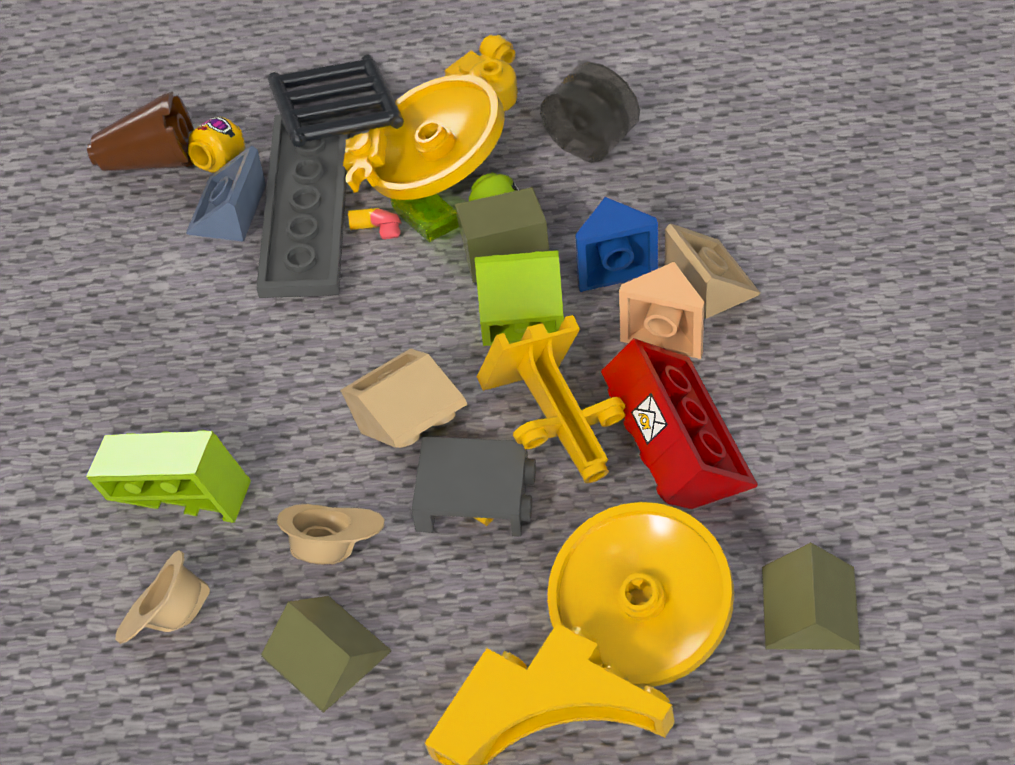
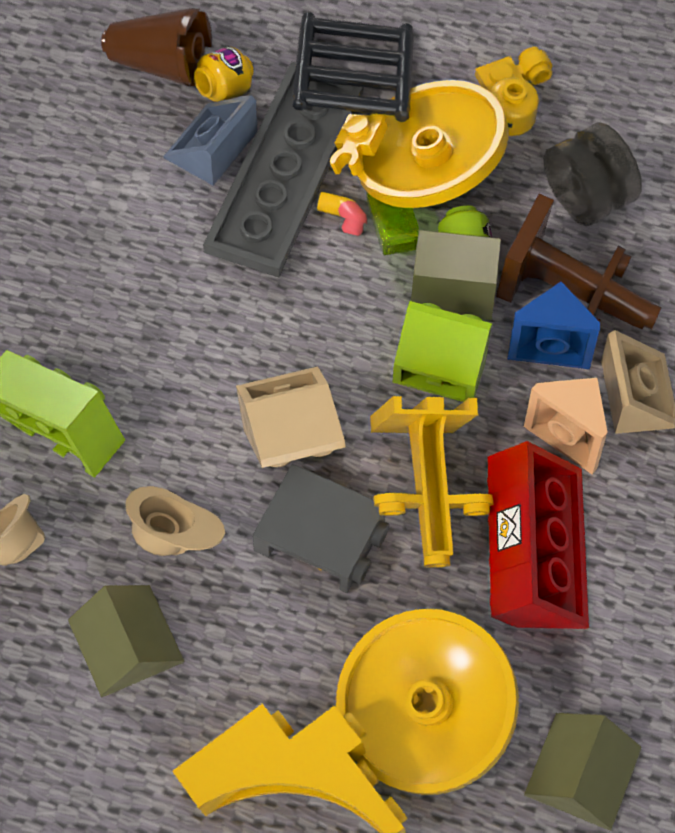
camera: 15 degrees right, 10 degrees up
(576, 196) = (538, 259): none -> reddish brown piece

